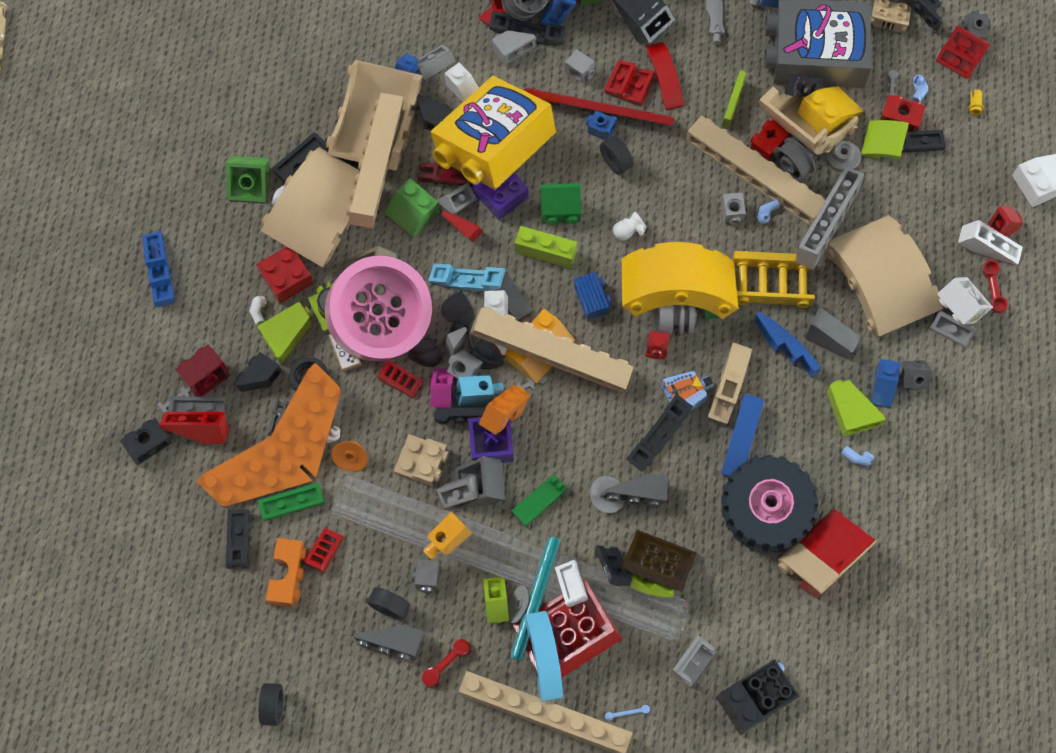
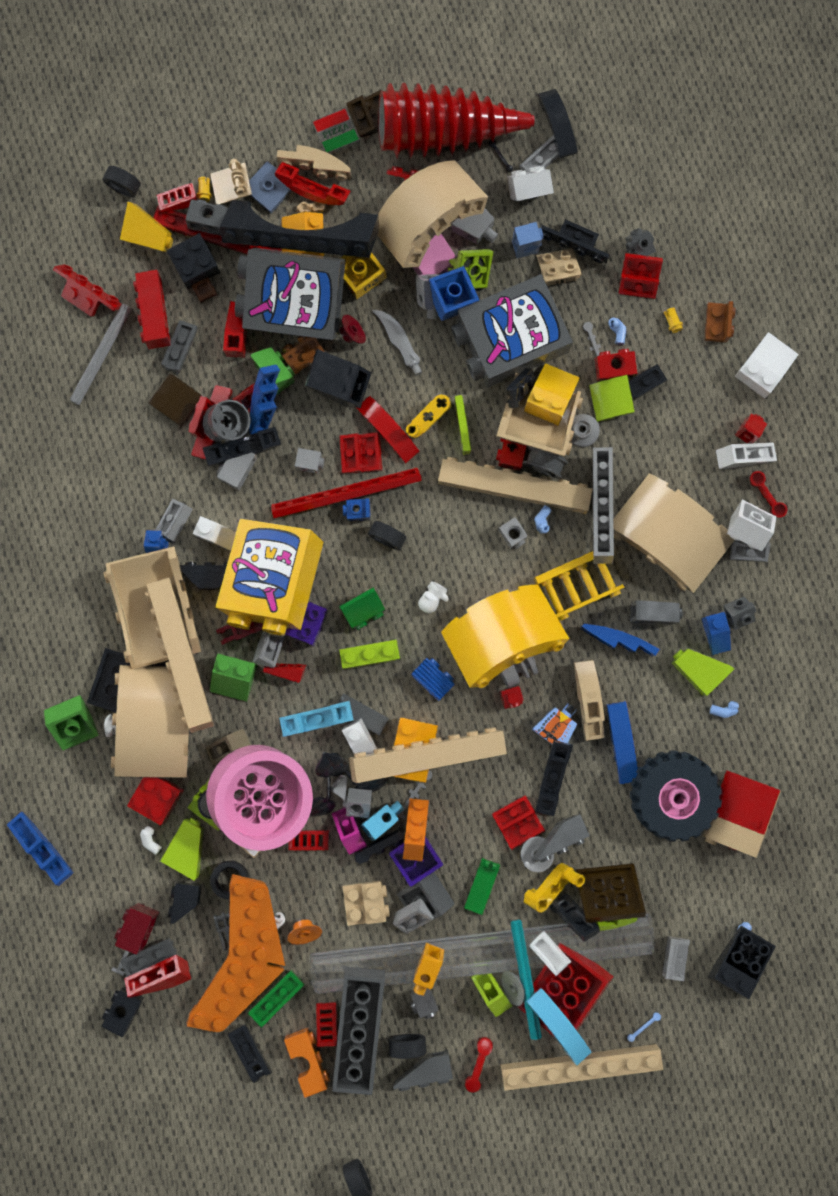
camera: 30 degrees left, 15 degrees up
(350, 562) = (358, 1030): none -> dark grey brick
(604, 459) = (518, 822): none -> red slope
(618, 527) = (557, 879): none -> yellow beam
(696, 82) = (423, 426): none -> yellow beam
(1018, 123) = (719, 322): none -> dark orange bracket

